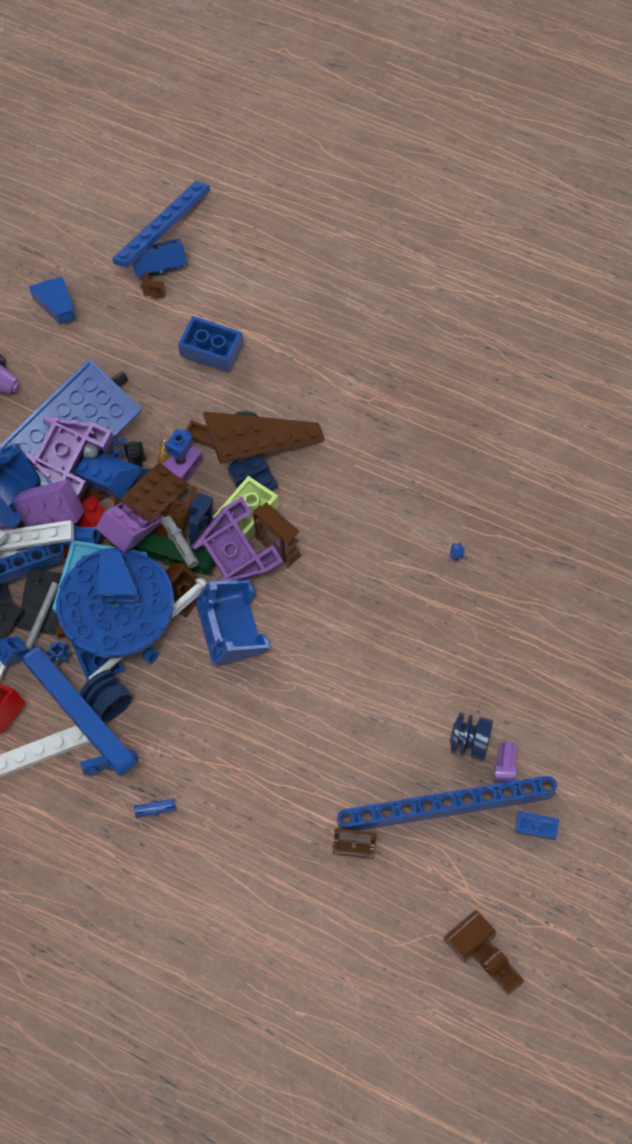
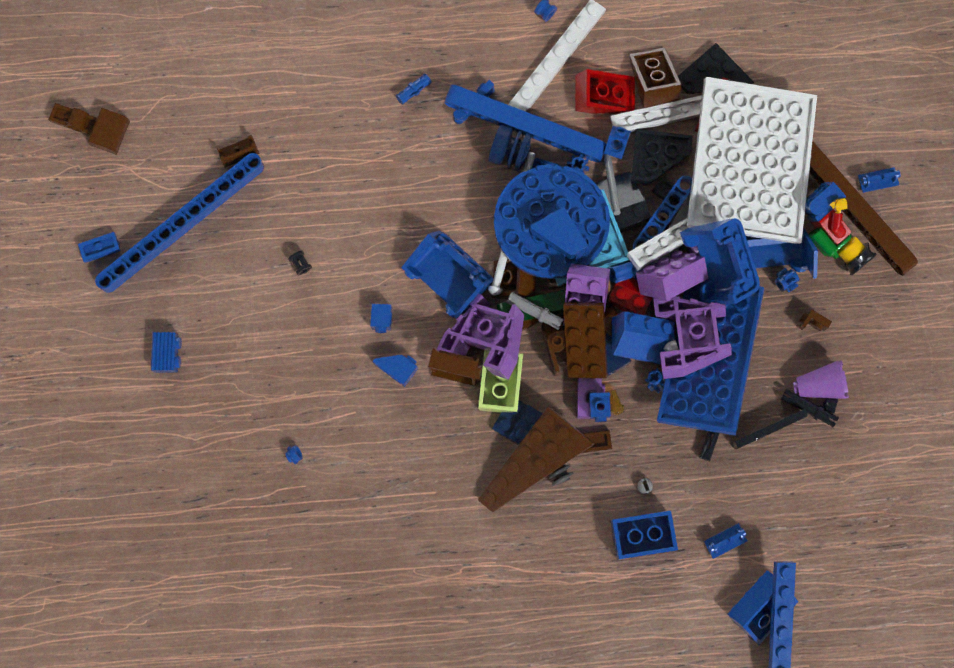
camera: 150 degrees right, 15 degrees up
(13, 362) = (812, 409): none -> black pin
(50, 367) = (769, 429): none -> black tile
(54, 299) = (826, 500): blue slope -> none
(134, 453) = (634, 376): black hinge -> none
(148, 313) = (726, 540): none -> blue hinge
(152, 288) = (739, 567): reddish brown bracket -> none
(188, 382) = (641, 488): none -> light grey hinge
(200, 517) = (536, 351): dark blue plate -> none
(313, 619) = (381, 317): none -> blue brick
(325, 571) = (397, 367): none -> blue slope
(354, 712) = (294, 258): none -> black bush
(471, 736) = (183, 286): dark blue wheel -> none
(505, 768) = (148, 280): medium lavender piece -> none
(524, 694) = (165, 352): none -> blue brick

